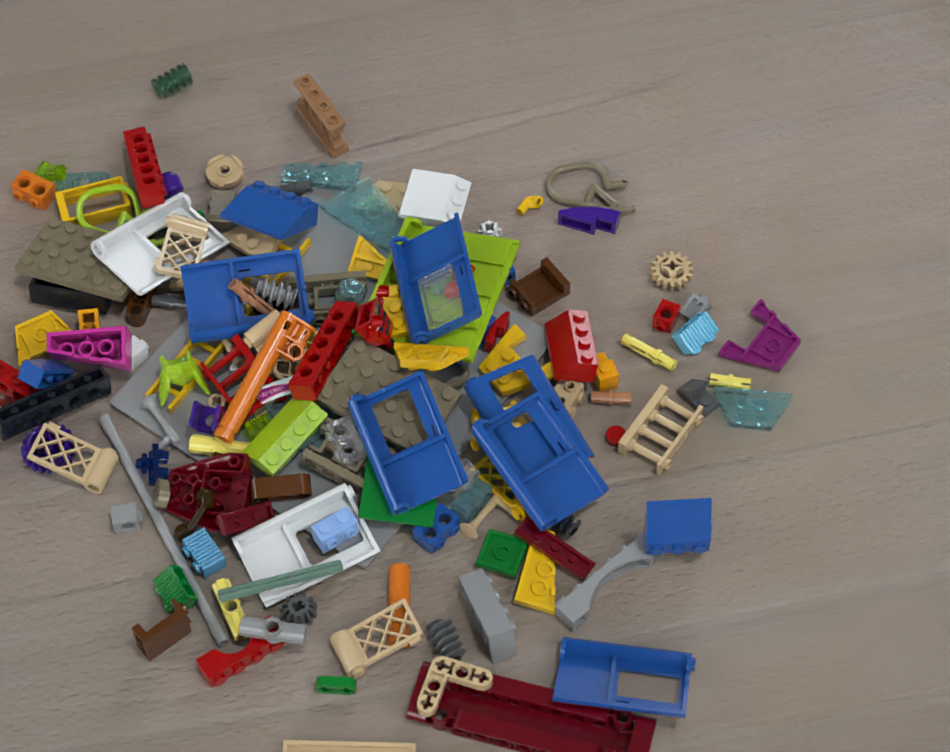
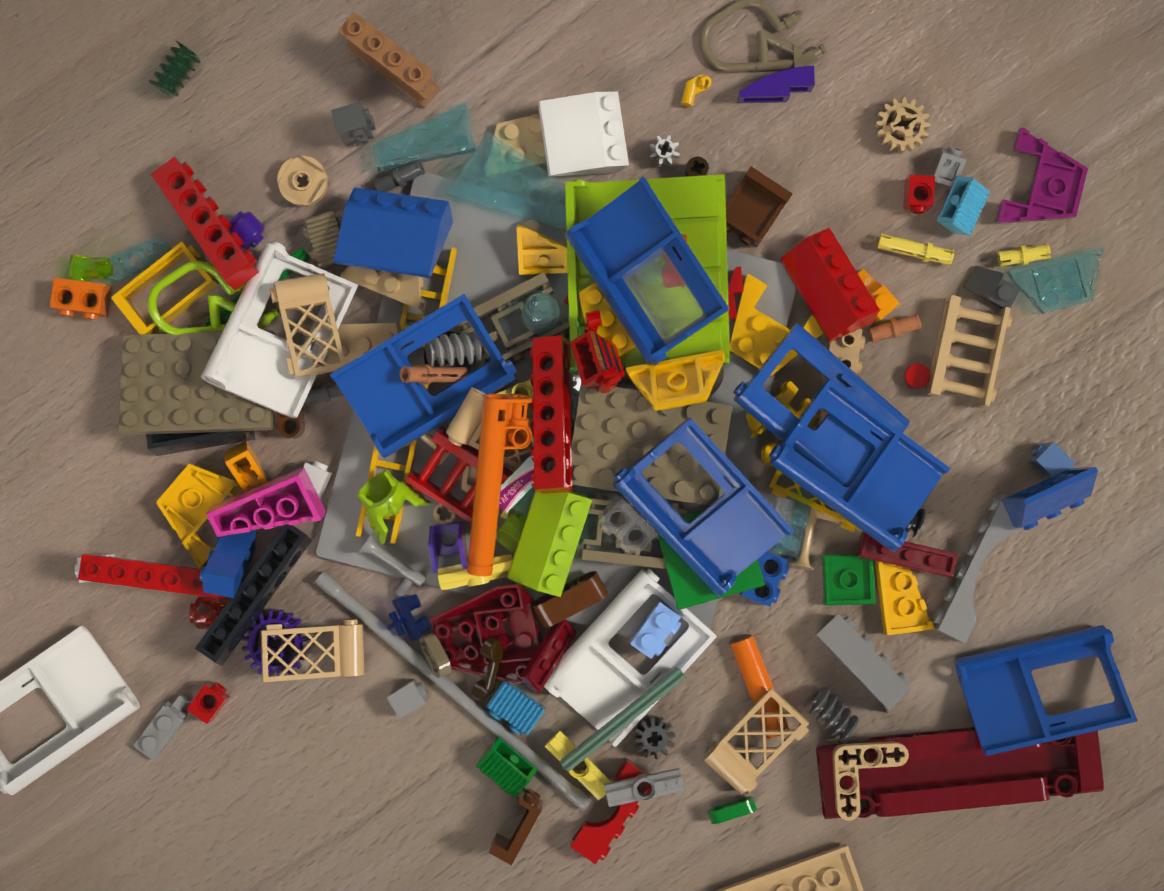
camera: 20 degrees left, 30 degrees up
(277, 145) = (354, 124): none -> dark grey brick

